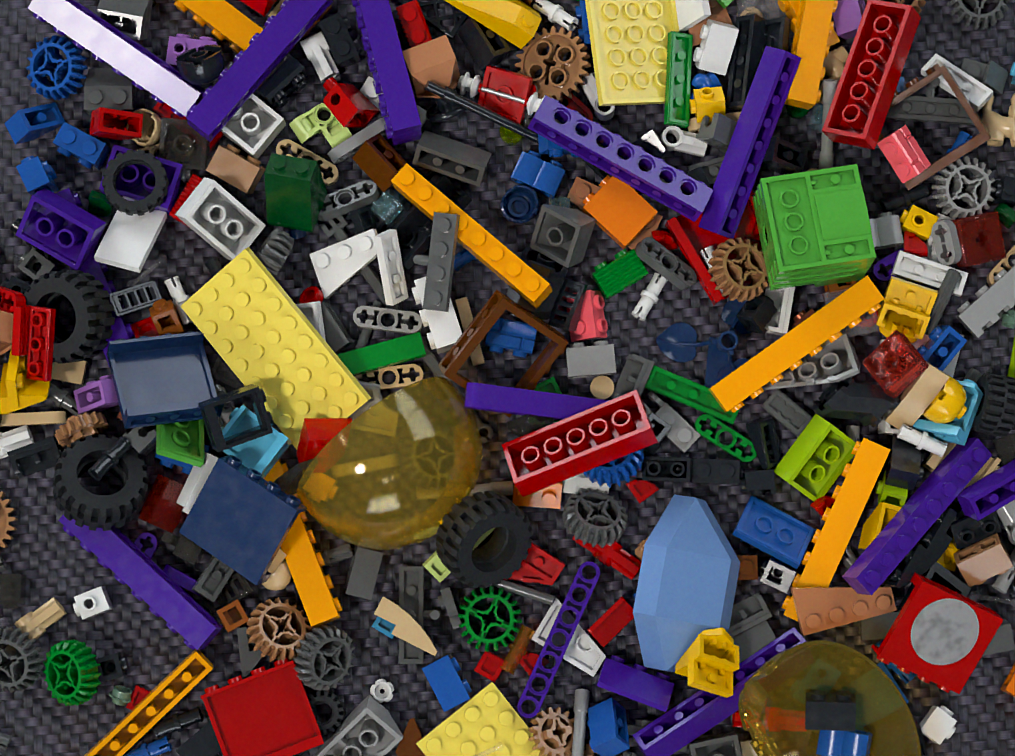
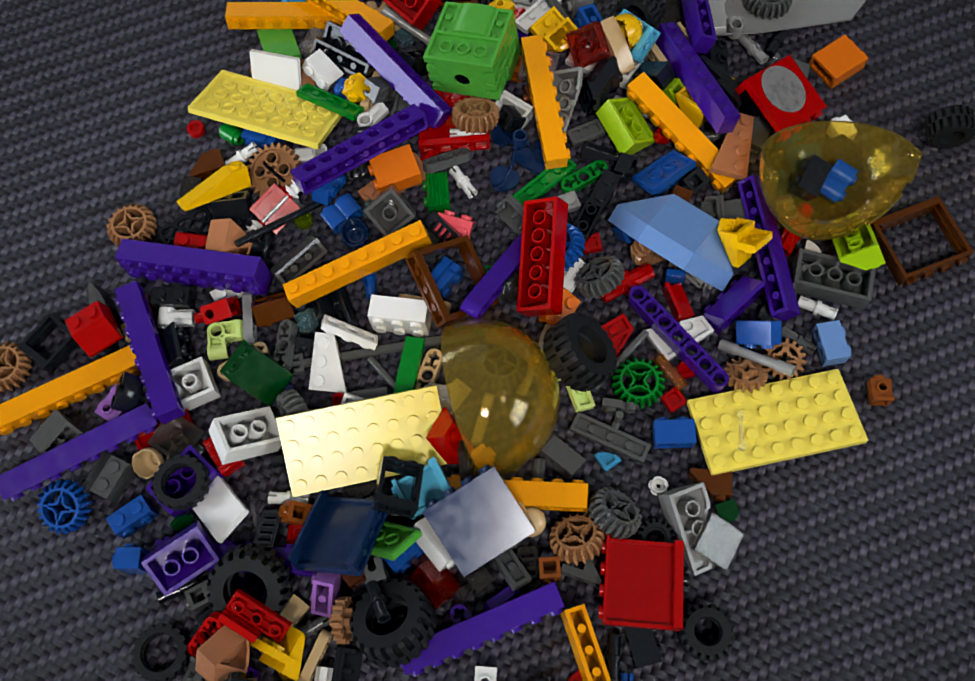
camera: 55 degrees left, 15 degrees down
(34, 122) = (93, 546): blue slope -> none
(111, 122) = (130, 479): red torso -> none
(235, 168) = (221, 405): medium nougat brick -> none
(369, 323) = (398, 346): light grey beam -> none
(406, 626) = (617, 441): tan slope -> none
(440, 261) = (364, 289): dark grey plate -> none
(590, 360) = (487, 235): light grey brick -> none
(602, 387) = (508, 237): tan tile -> none
(922, 440) = (645, 56): white pin -> none
(983, 560) = (741, 56): medium nougat brick -> none

